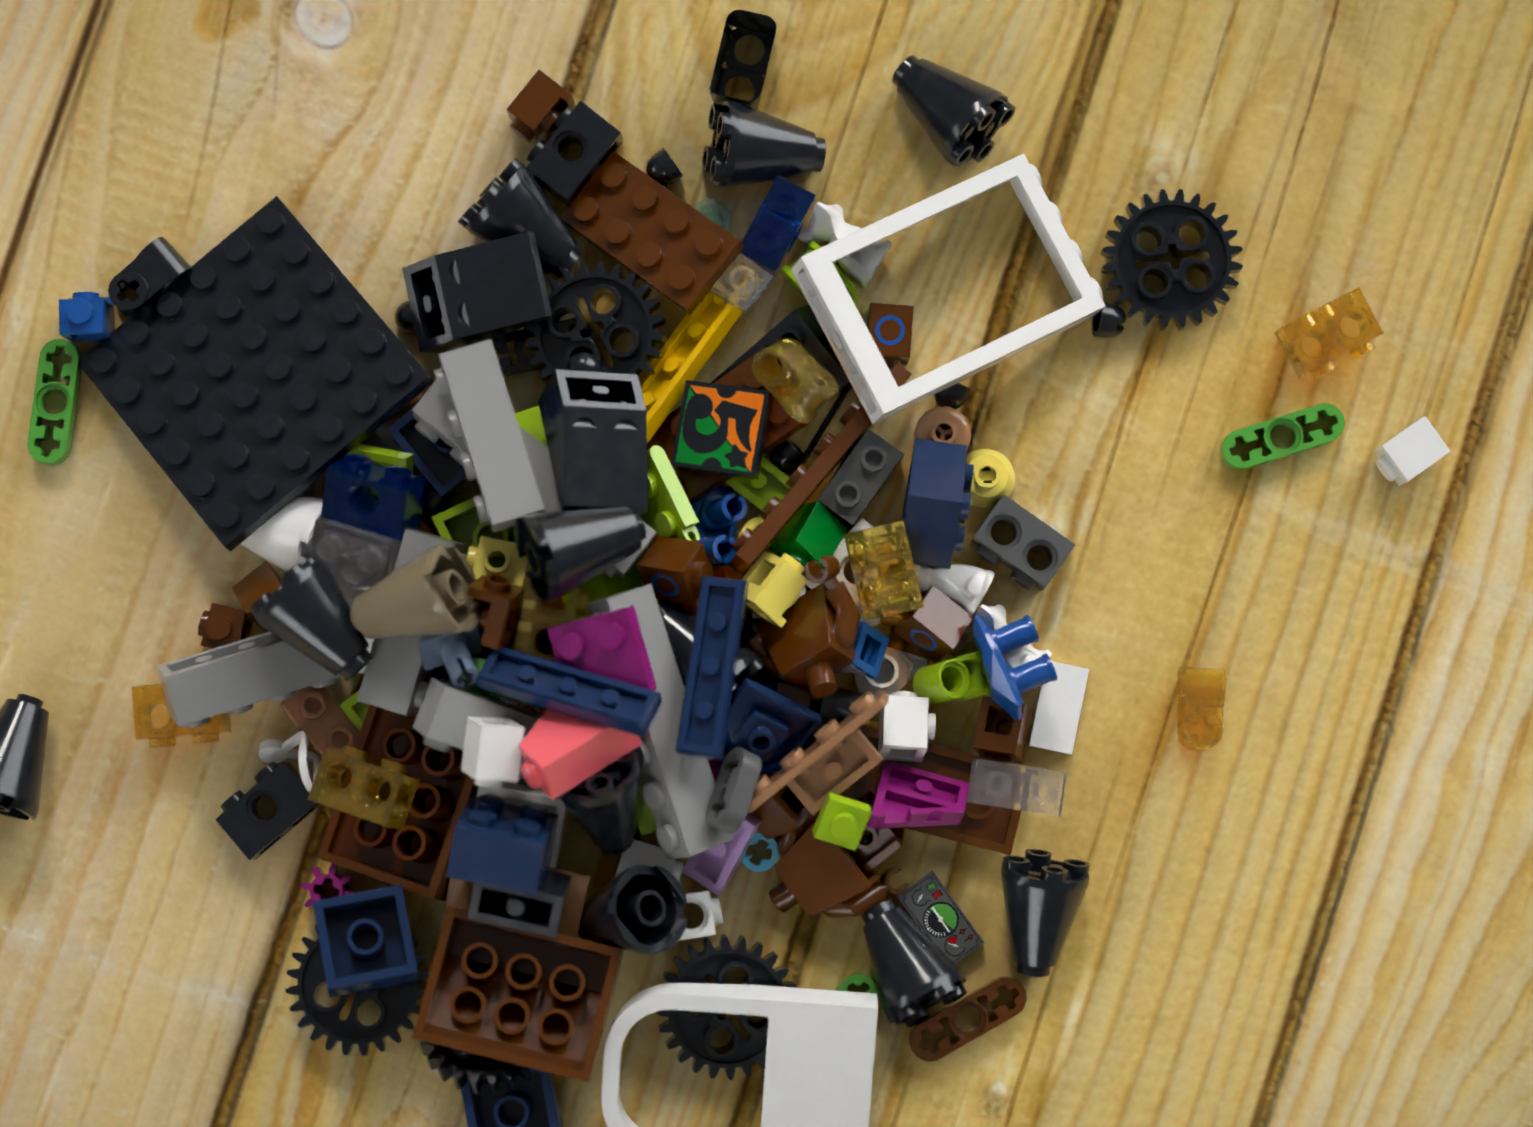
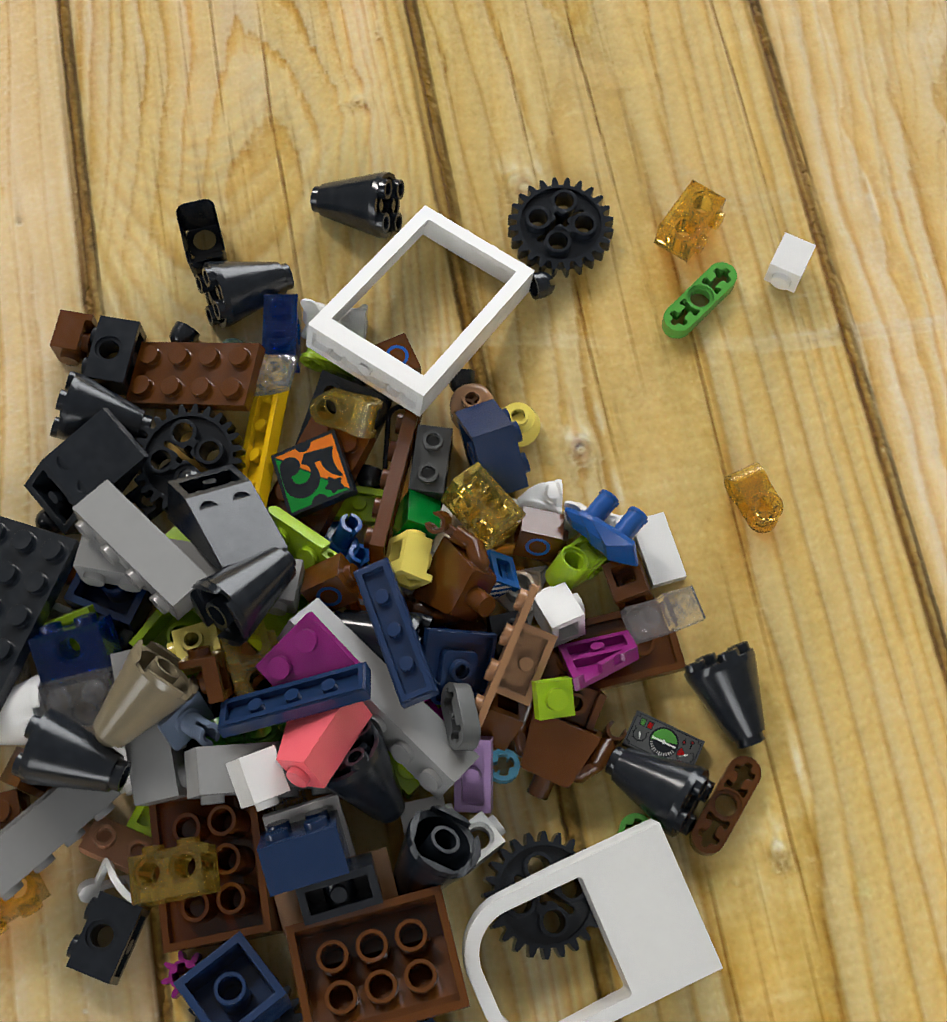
camera: 30 degrees left, 15 degrees down
(1028, 533) = (568, 442): dark grey brick -> none

